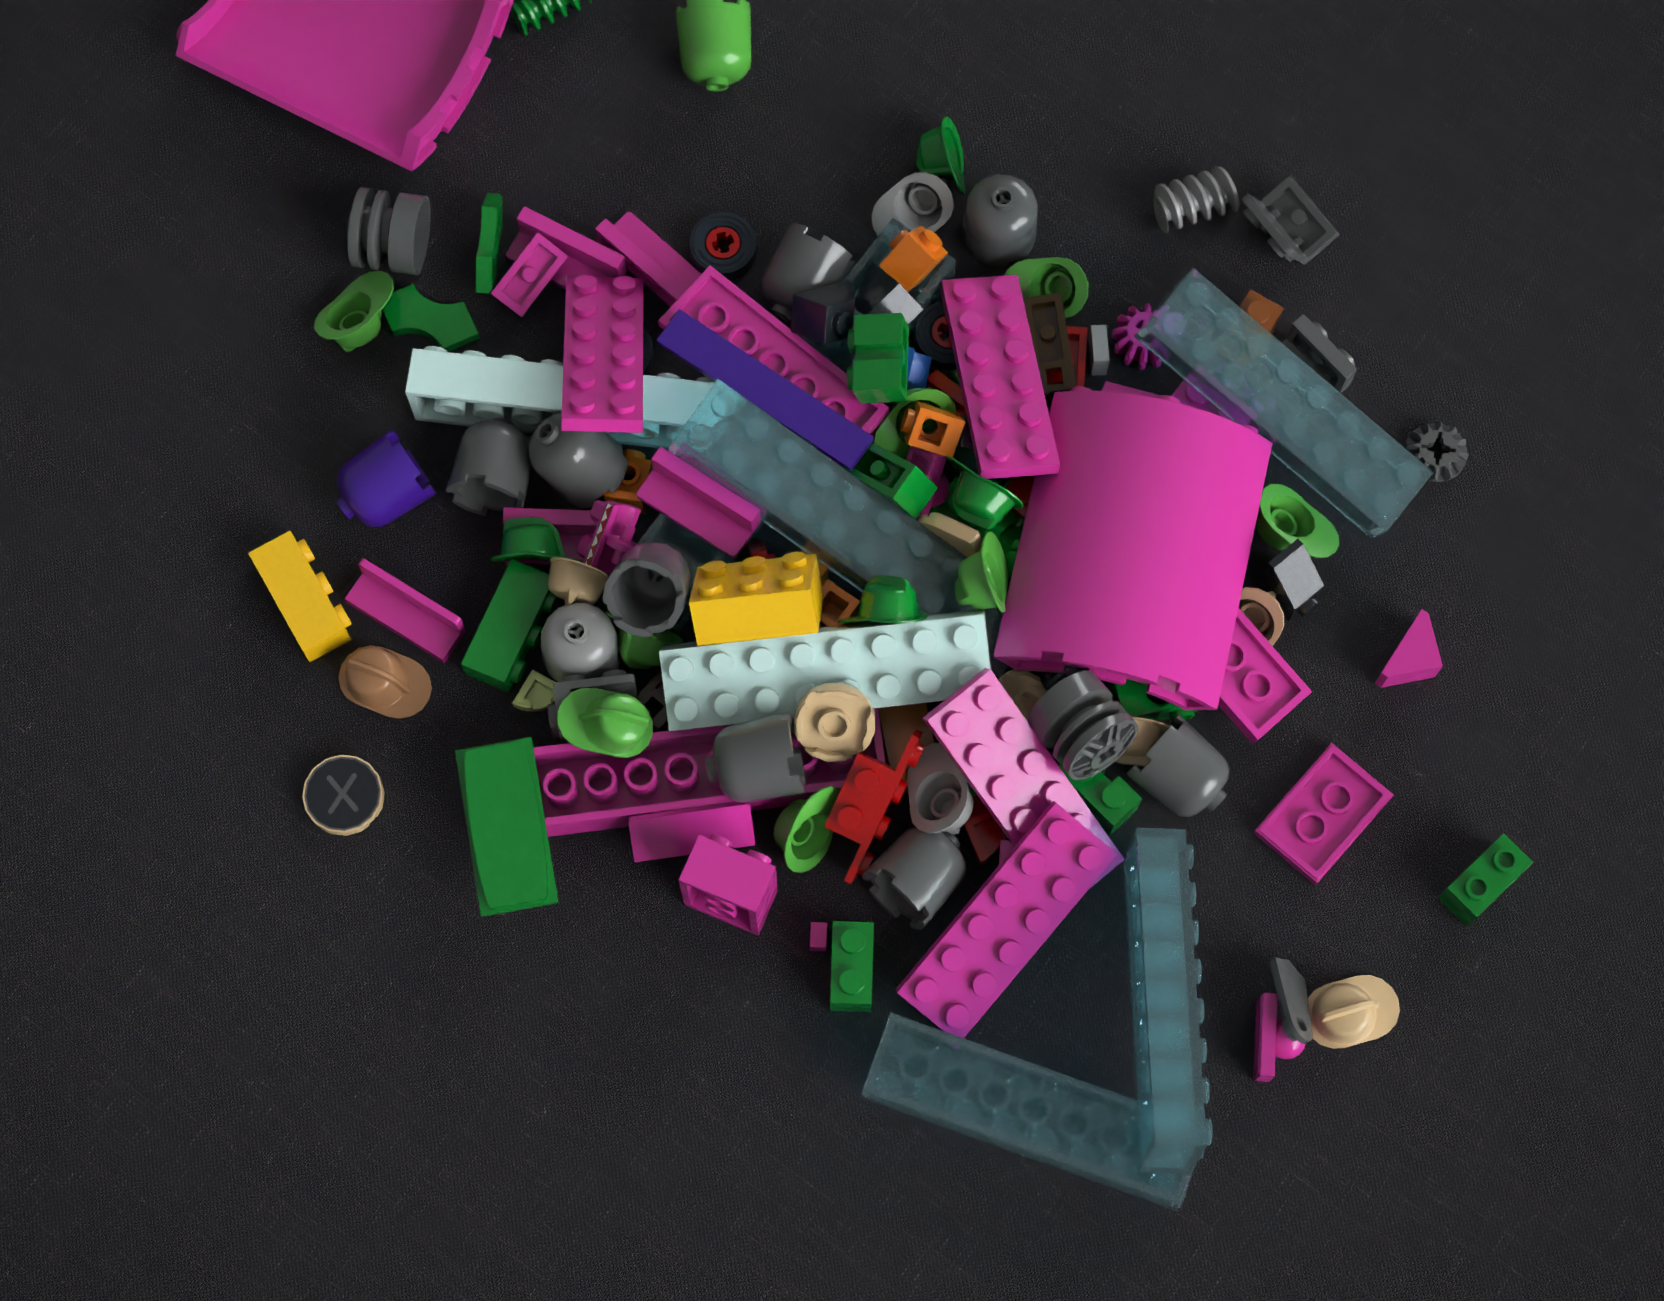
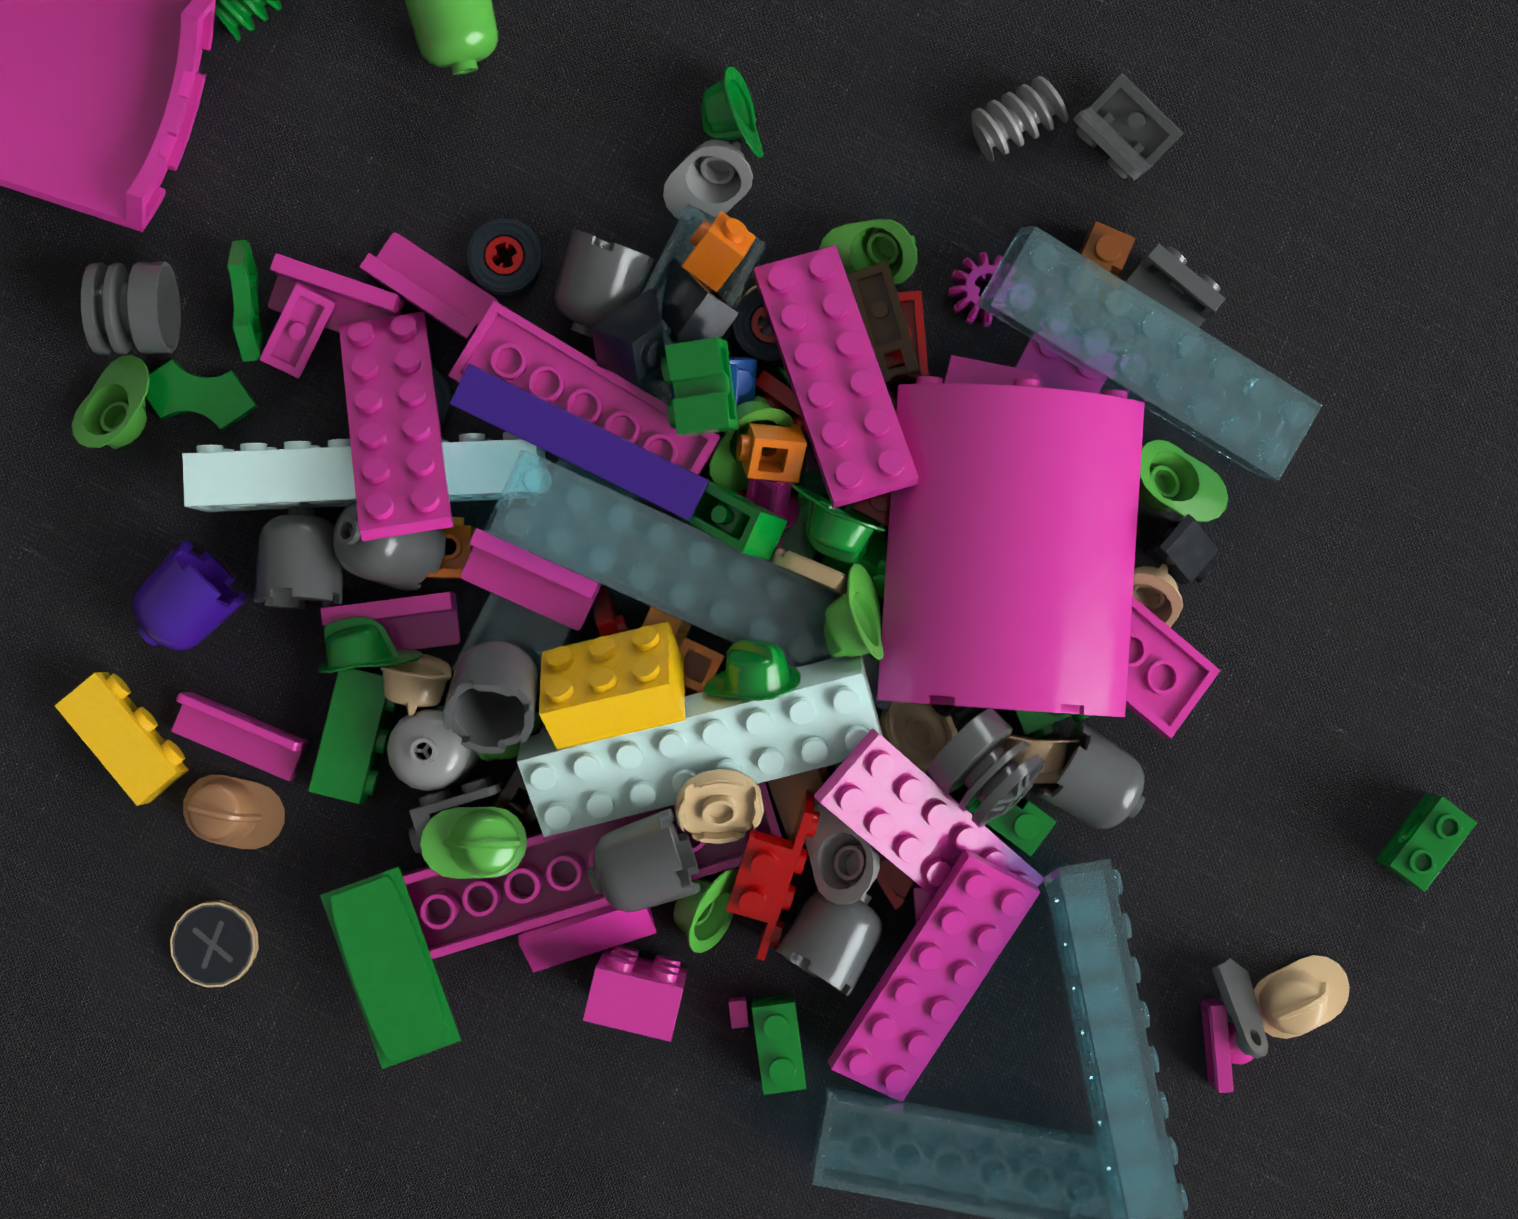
camera: 10 degrees left, 15 degrees up
(535, 693) = (397, 799): yellowish green tile -> none
(612, 535) = (444, 629): dark pink hips -> none
(1000, 220) = (802, 198): dark grey cylinder -> none
(1098, 350) = (936, 313): light grey tile -> none
(1323, 814) = (1246, 792): dark pink tile -> none
(1415, 656) = (1321, 604): dark pink slope -> none
(1450, 463) = (1304, 353): dark grey gear -> none

